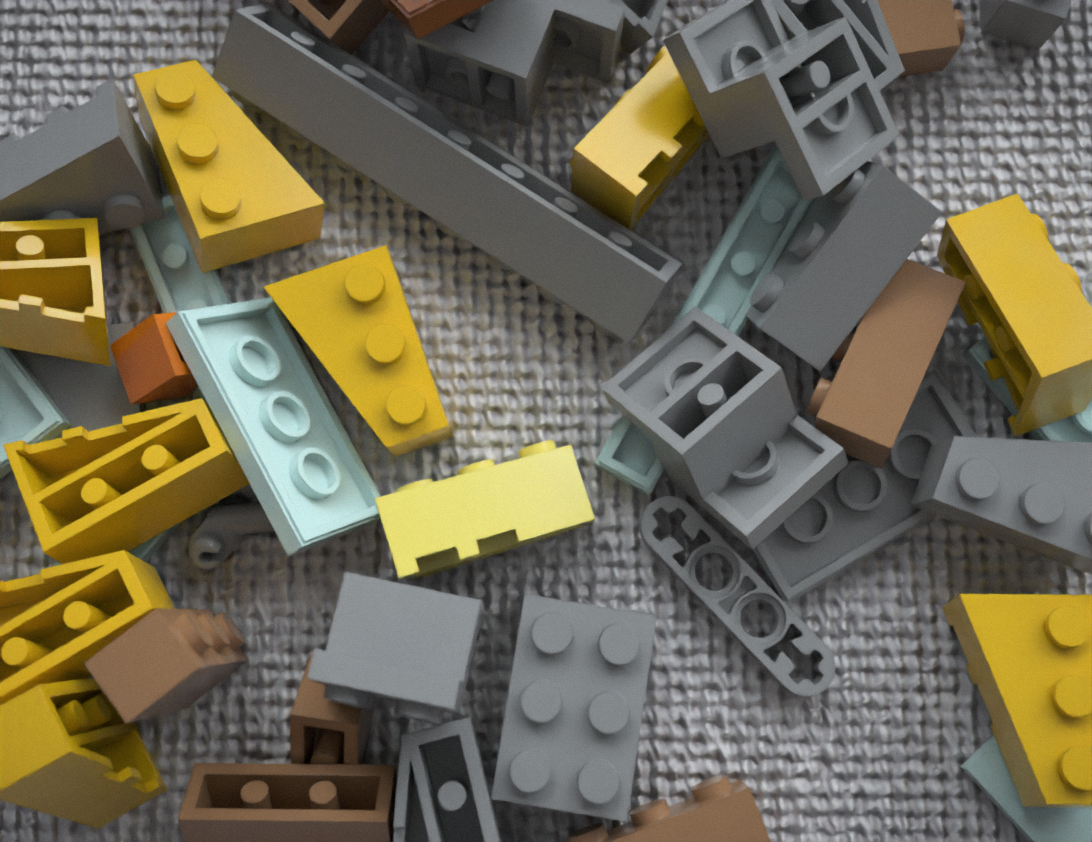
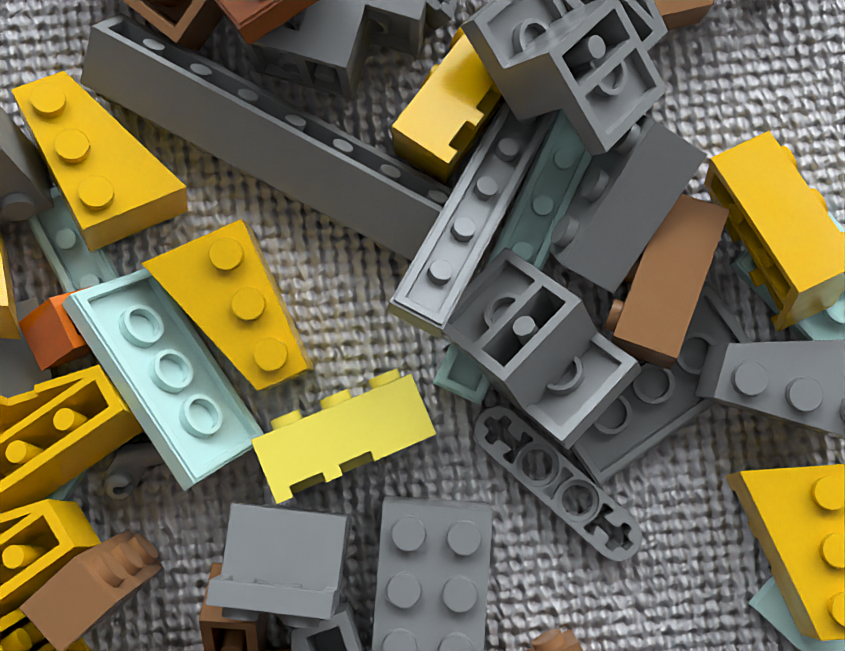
camera: 10 degrees left, 5 degrees up
(656, 263) = (468, 221): none -> light grey tile

